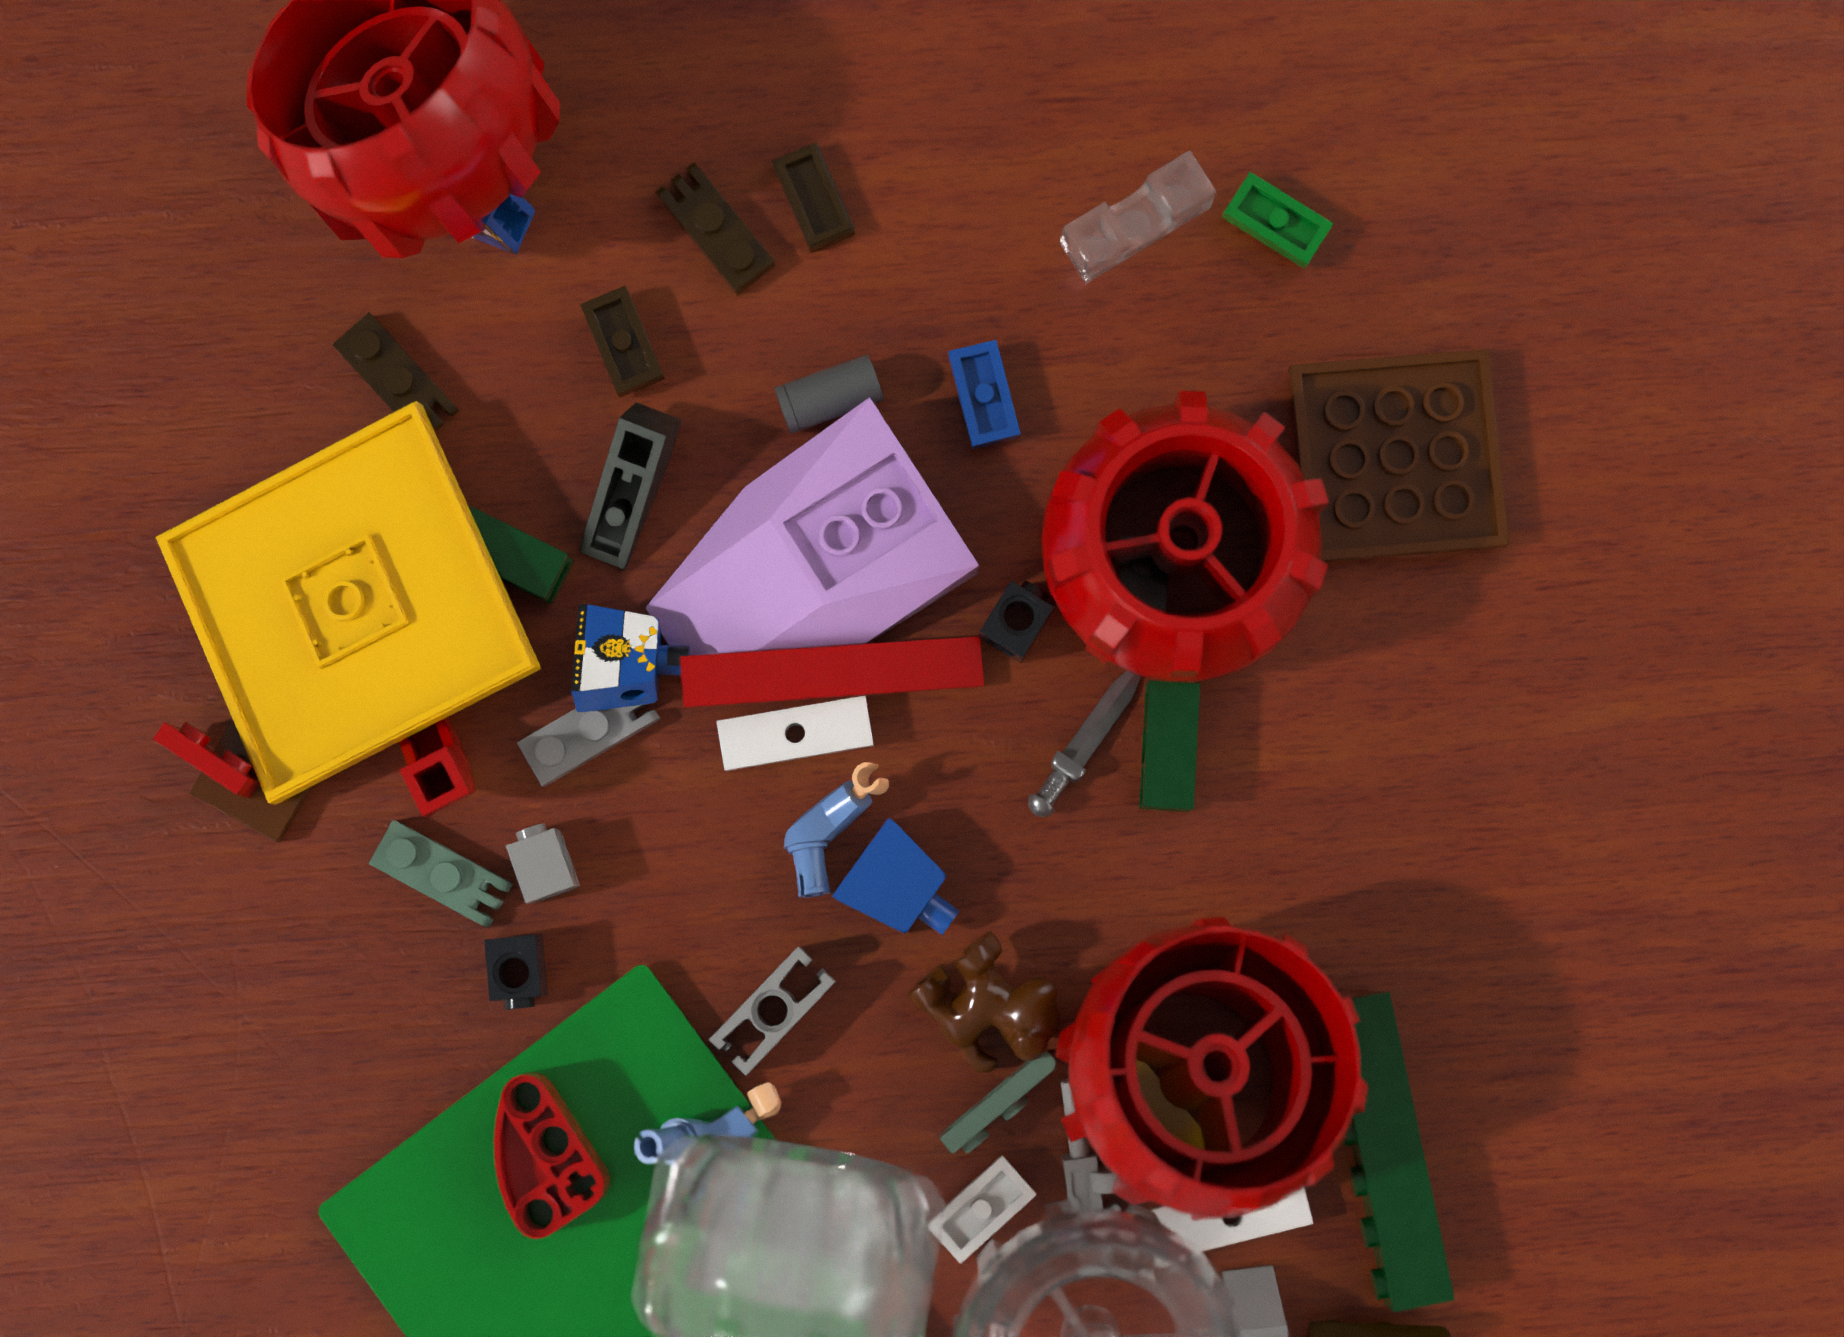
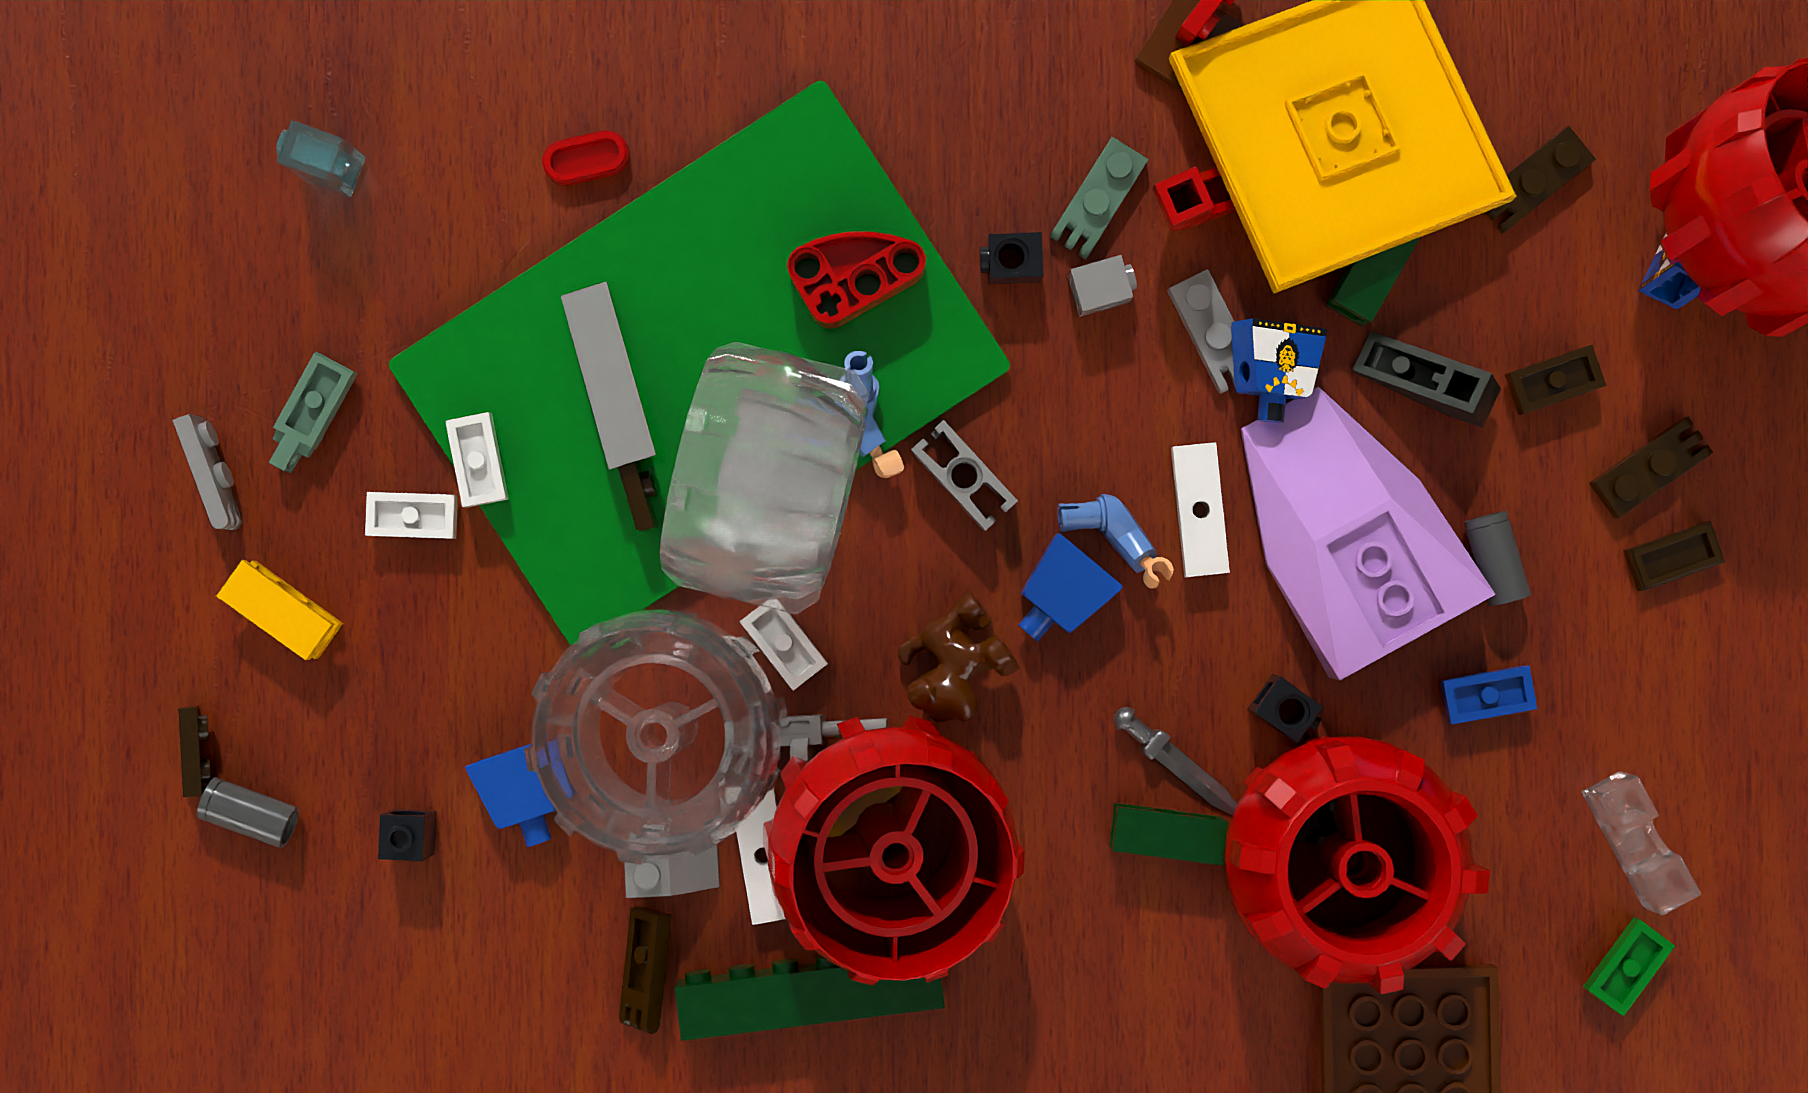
camera: 90 degrees right, 5 degrees up
(831, 671) = (1252, 544): red tile -> none
(1003, 1100) = (874, 669): sand green hinge -> none

